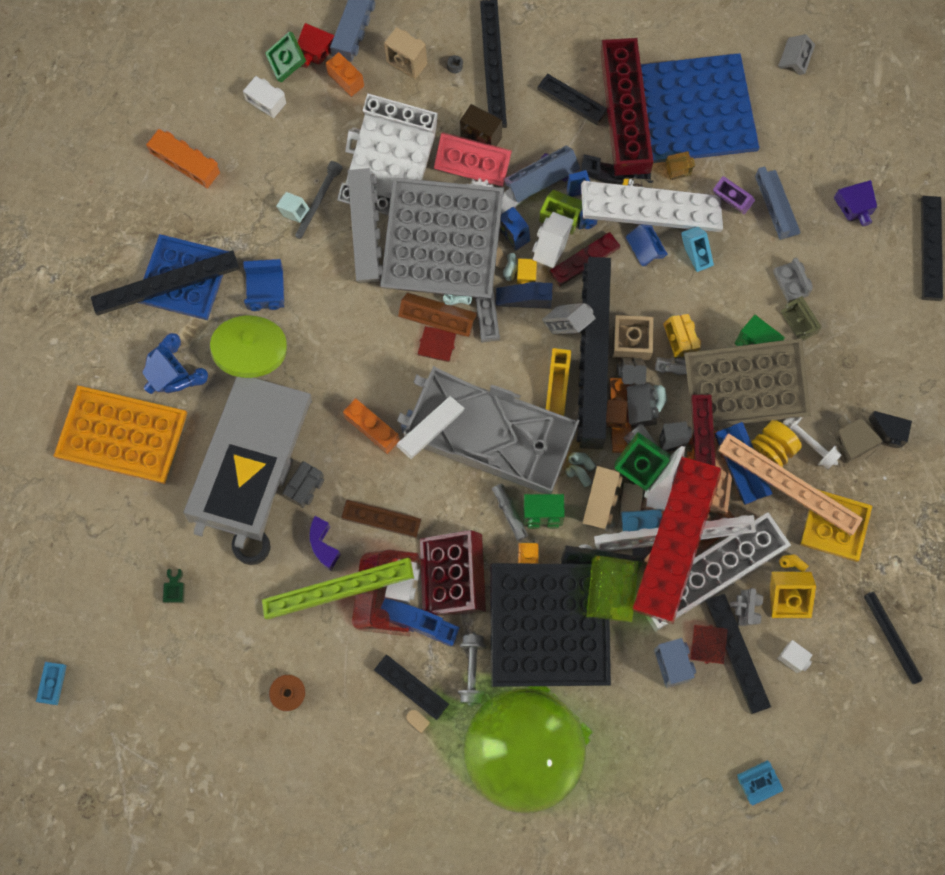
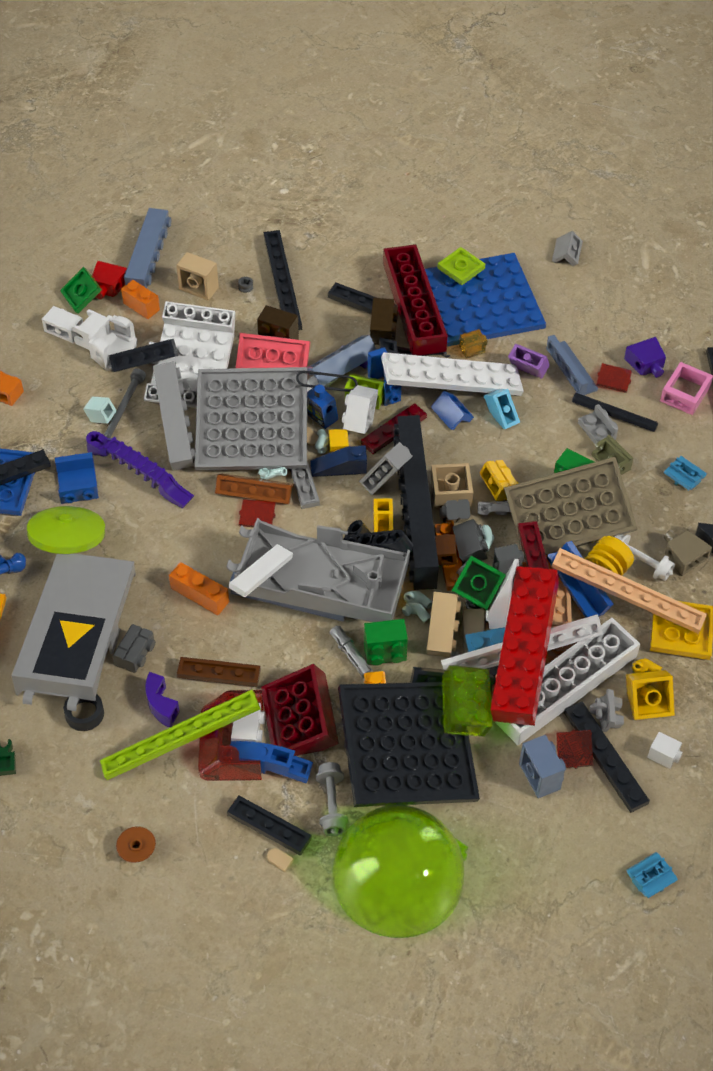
camera: 10 degrees left, 20 degrees down
(307, 127) = (102, 340): none -> white piece
(341, 149) = (143, 355): none -> black plate
(351, 303) = (168, 486): none -> dark purple piece
(522, 197) = (326, 374): none -> black piece
(533, 392) = (391, 540): none -> black beam
(588, 135) = (383, 319): none -> dark brown brick
(681, 68) = (461, 266): none -> lime plate
(813, 264) = (616, 412): none -> black axle
(819, 221) = (614, 378): none -> clear red piece
(871, 346) = (685, 473): none -> dark azure piece
(883, 258) = (687, 402): none -> bright pink window

